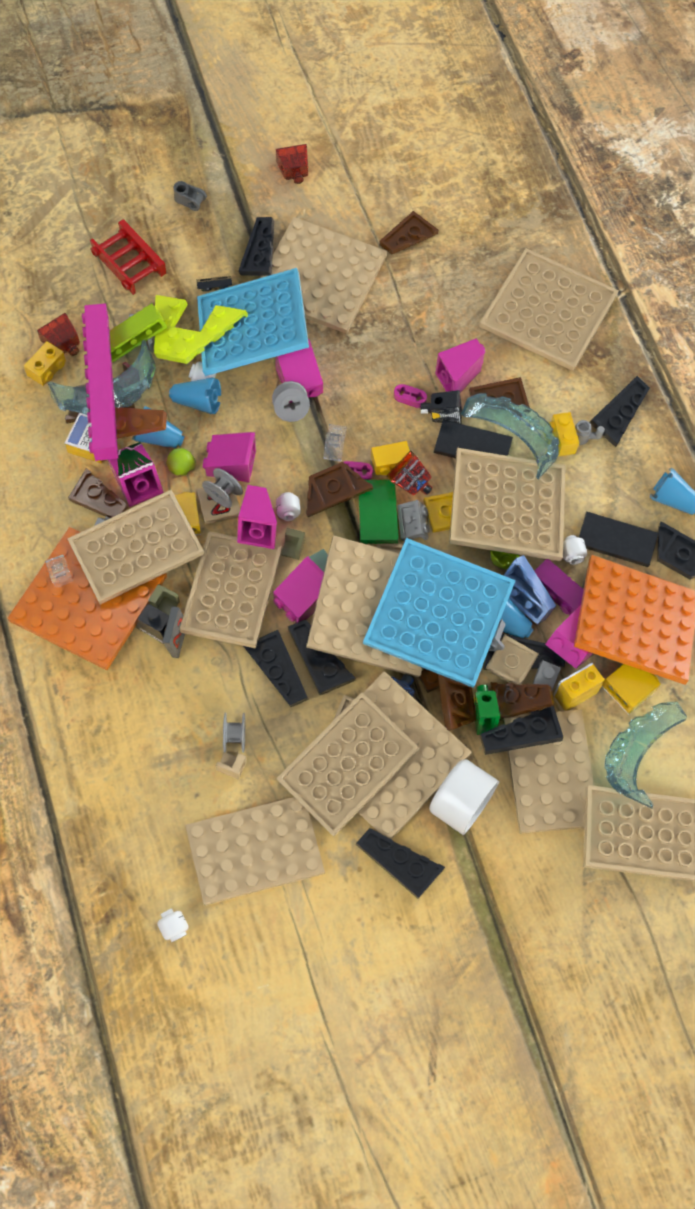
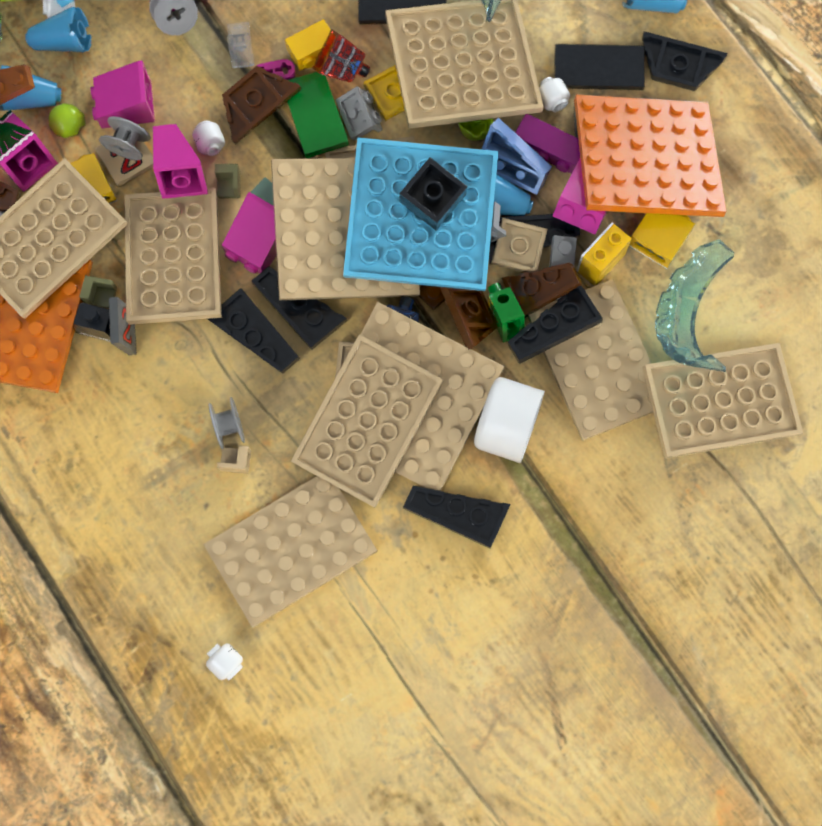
camera: 10 degrees left, 10 degrees up
(453, 598) = (432, 193): none -> black brick

